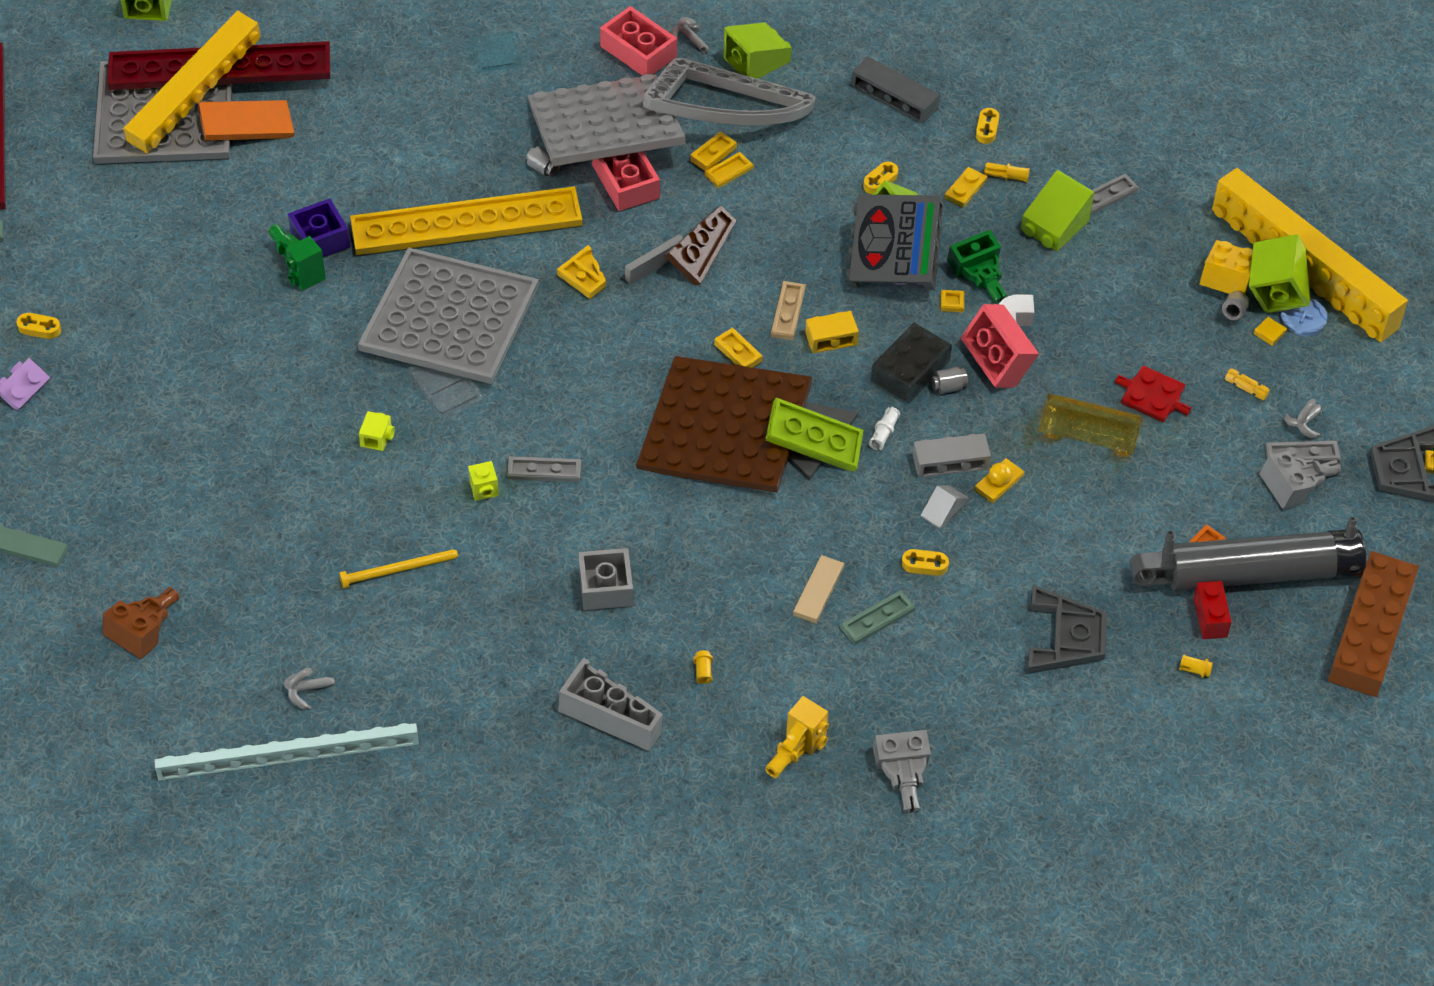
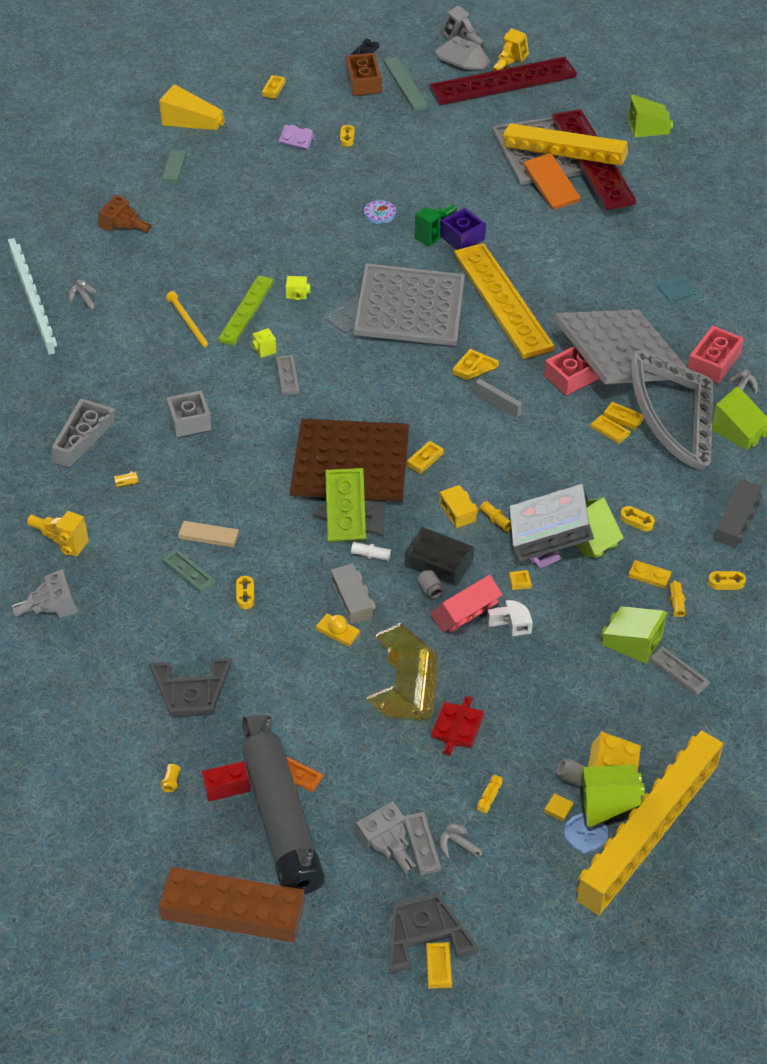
camera: 80 degrees right, 5 degrees down
(233, 317) = (379, 212): none -> light blue tile
(397, 497) = (246, 310): none -> lime plate
(699, 248) = (517, 419): wing -> none
(788, 310) = (478, 482): tan tile -> none
(852, 300) = (496, 516): none -> yellow pin
(943, 505) = (306, 597): light grey slope -> none
(978, 262) = (560, 587): green brick -> none

